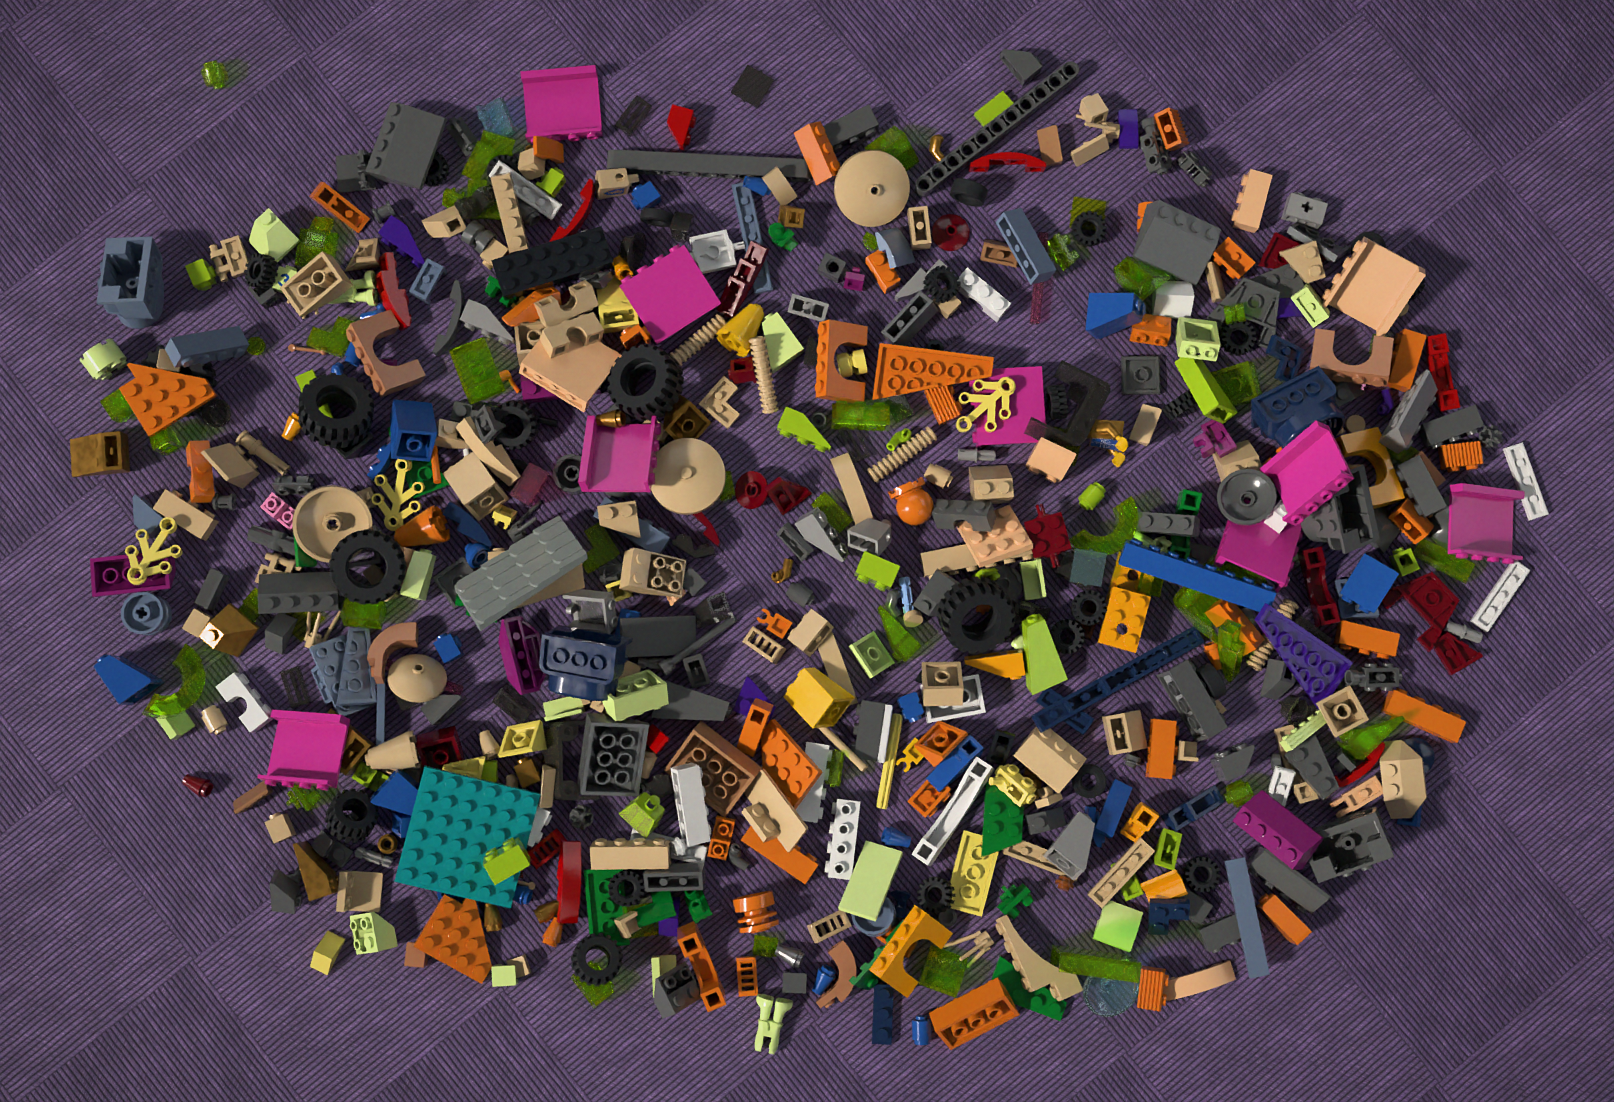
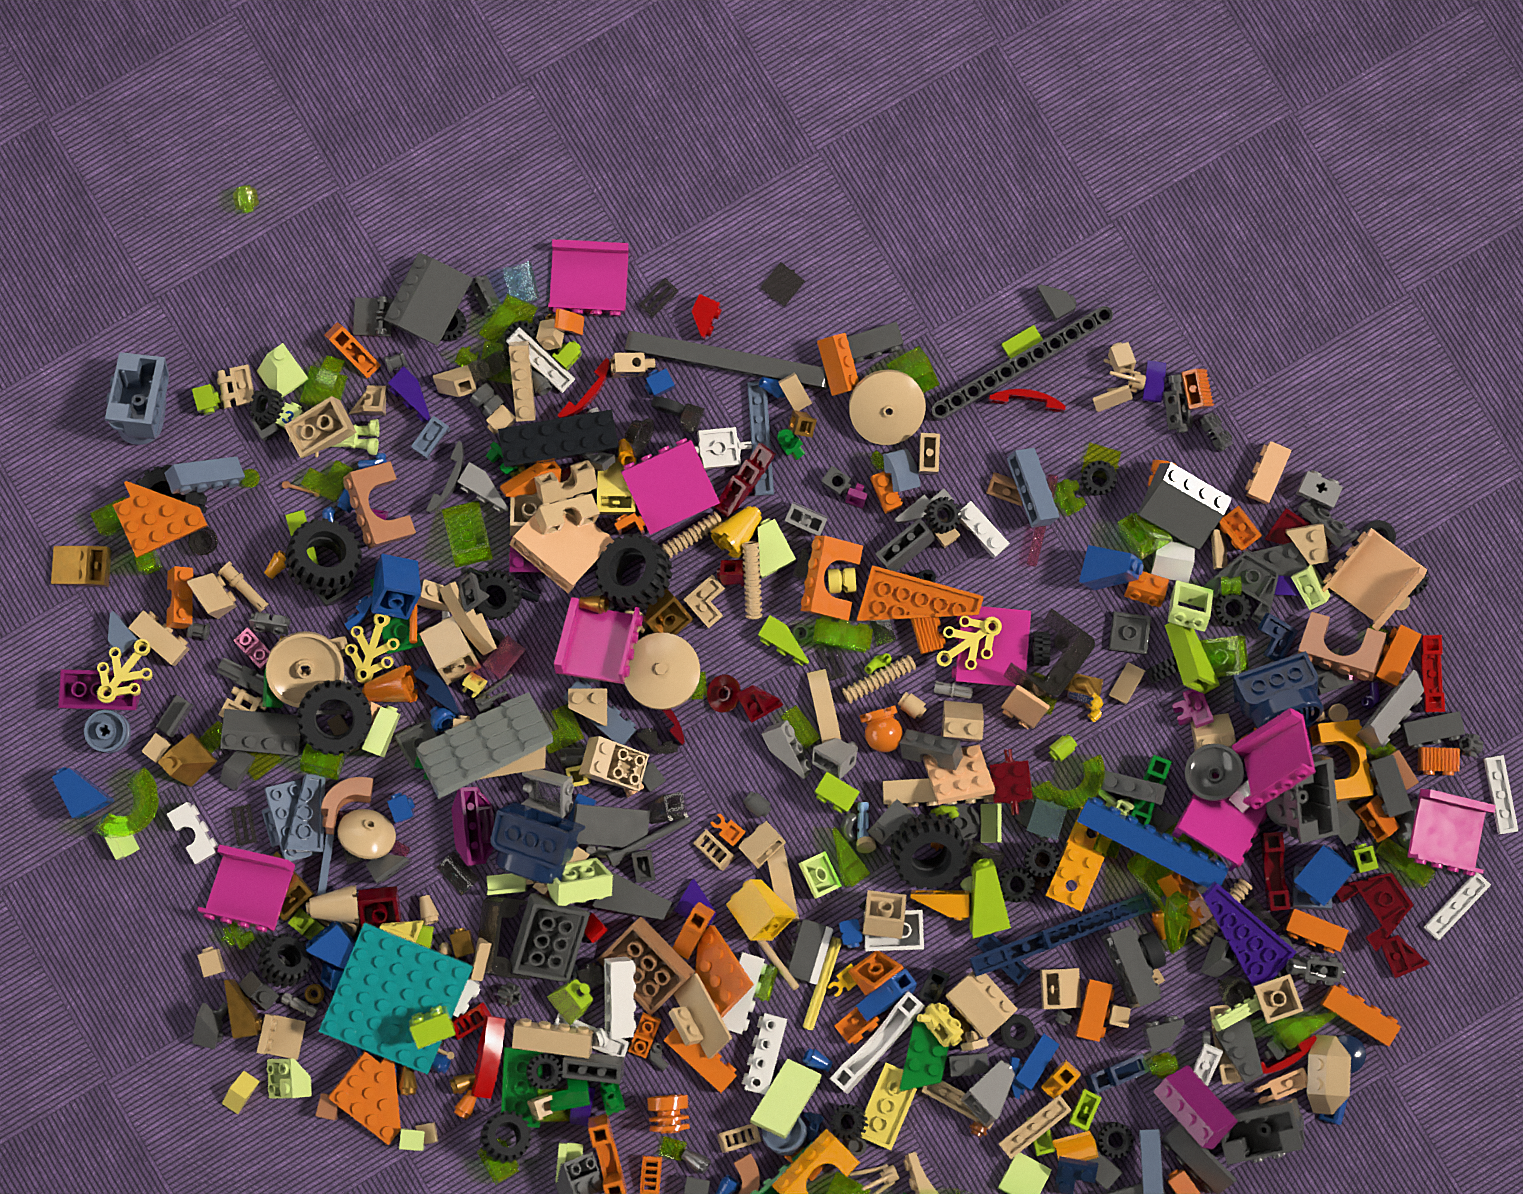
camera: 10 degrees right, 0 degrees up
(103, 359) = (98, 471): yellowish green brick -> none
(165, 363) = (162, 485): tan slope -> none
(200, 786) = (136, 909): dark red cone -> none
(214, 720) = (160, 846): tan brick -> none
(251, 797) = (187, 928): medium nougat slope -> none
(315, 638) = (270, 779): tan plant -> none
(390, 295) = (390, 444): red slope -> none
(461, 411) = (447, 574): dark grey plate -> none
(506, 375) = (495, 543): orange hand -> none
(523, 739) = (462, 909): light yellow slope -> none
(563, 470) = (538, 648): dark grey brick -> none
(649, 761) = (584, 949): tan cone -> none
(784, 573) = (743, 781): pearl gold arm -> none
(794, 541) = (759, 751): dark grey tile -> none
(934, 147) = (956, 373): pearl gold arm -> none
(948, 241) = (953, 467): dark red dish -> none
(968, 192) = (983, 424): black tyre -> none
(1012, 897) = (924, 1135): green hips -> none
(1050, 146) = (1072, 387): medium nougat slope -> none
(1463, 632) = (1413, 936): light grey axle -> none

